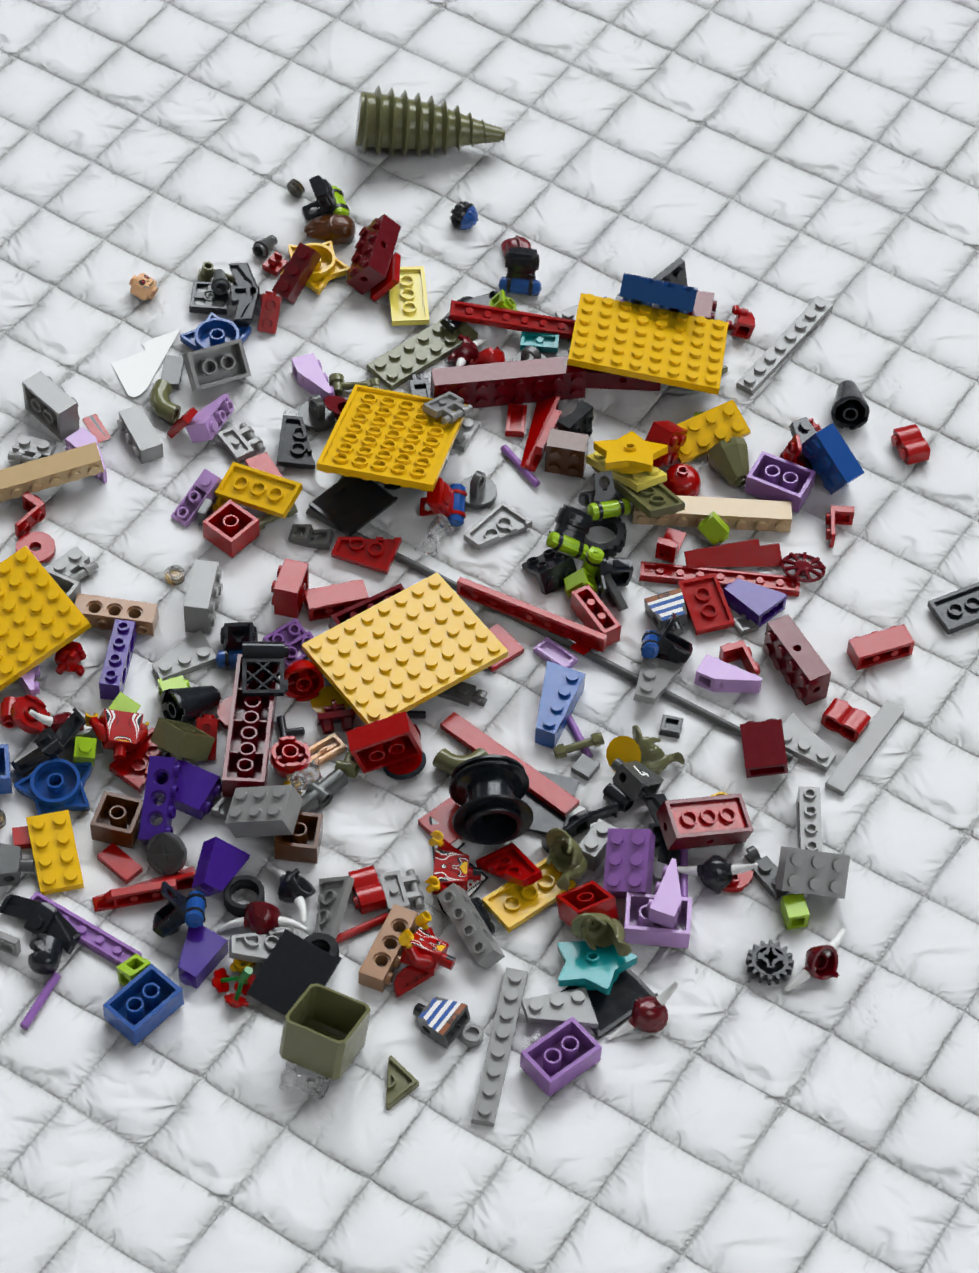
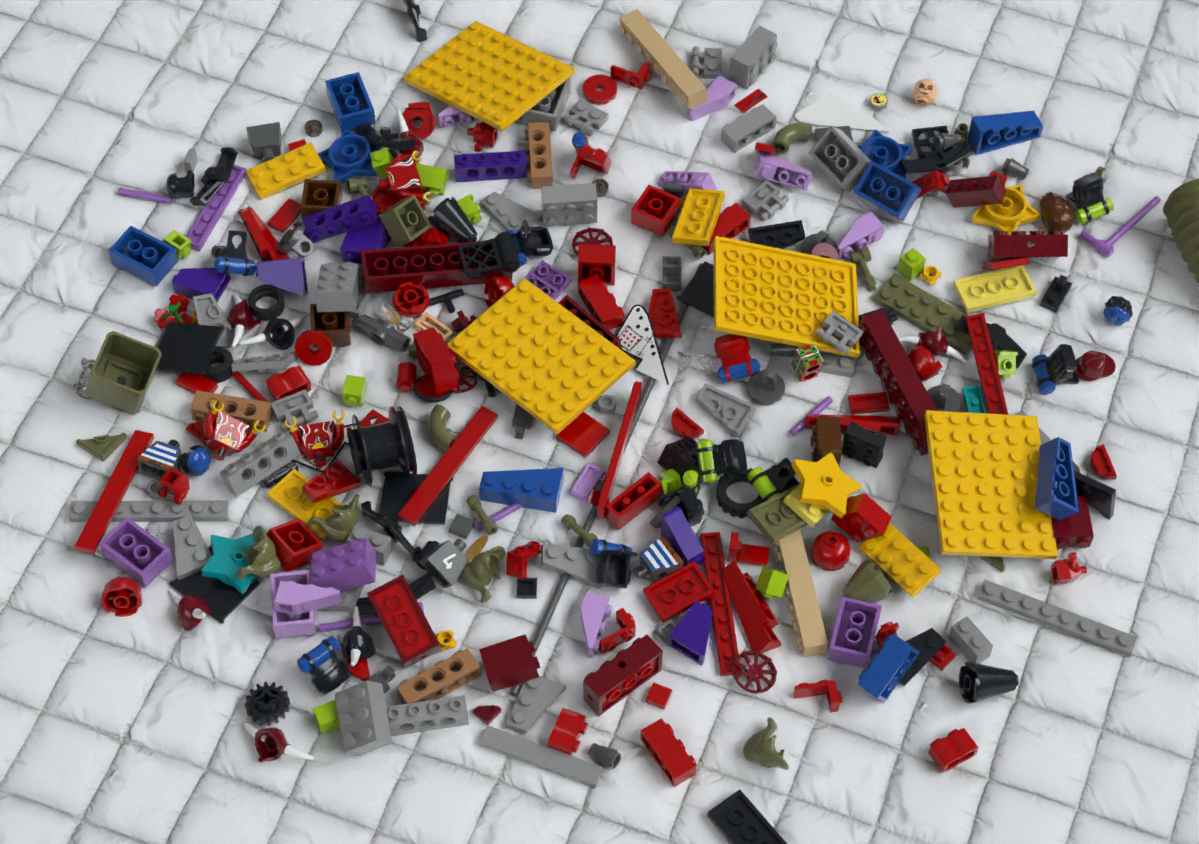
camera: 80 degrees right, 5 degrees up
(99, 785) = (357, 185): none -> olive brick
(137, 568) = (588, 156): none -> red piece
(138, 327) = (878, 101): none -> tile
(218, 238) = (1003, 130): none -> blue wedge
(251, 594) = (591, 240): none -> dark red wheel
(271, 339) = (887, 190): none -> blue brick
(328, 854) = (310, 356): none -> red tile
(343, 976) = (196, 383): none -> red tile
(362, 347) = (911, 264): none -> lime brick
(376, 338) = (933, 272): none -> yellow plate
(378, 208) = (1106, 247): none -> medium lavender bar
(385, 574) = (640, 342): none -> white sticker
(386, 782) = (406, 376): none -> red brick
(391, 831) = (354, 390): none -> lime brick
(425, 256) = (1056, 293): none -> black hinge
(451, 985) = (195, 462): none -> blue piece
(466, 447) = (810, 363): none -> piece
(474, 1069) = (113, 493): none -> red tile
(483, 1006) = (176, 484): none -> red piece
(507, 563) = (684, 425): none -> red plate
(612, 1076) = (121, 596): none -> red cylinder
(619, 270) = (1101, 463): none -> red plate
(634, 658) = (569, 522): none -> olive bar
(641, 716) = (518, 557): none -> red bracket
(644, 584) = (681, 537): none -> dark purple slope
(741, 900) = (324, 666): none -> black piece
(764, 799) = (450, 680): none -> medium nougat brick
(803, 404) = (970, 641): none -> light grey brick
(810, 780) = (487, 713): none -> dark red tile
(817, 642) = (658, 696): none -> red tile
(877, 693) = (607, 756): none -> dark grey cone
(889, 575) = (762, 749): none -> olive piece

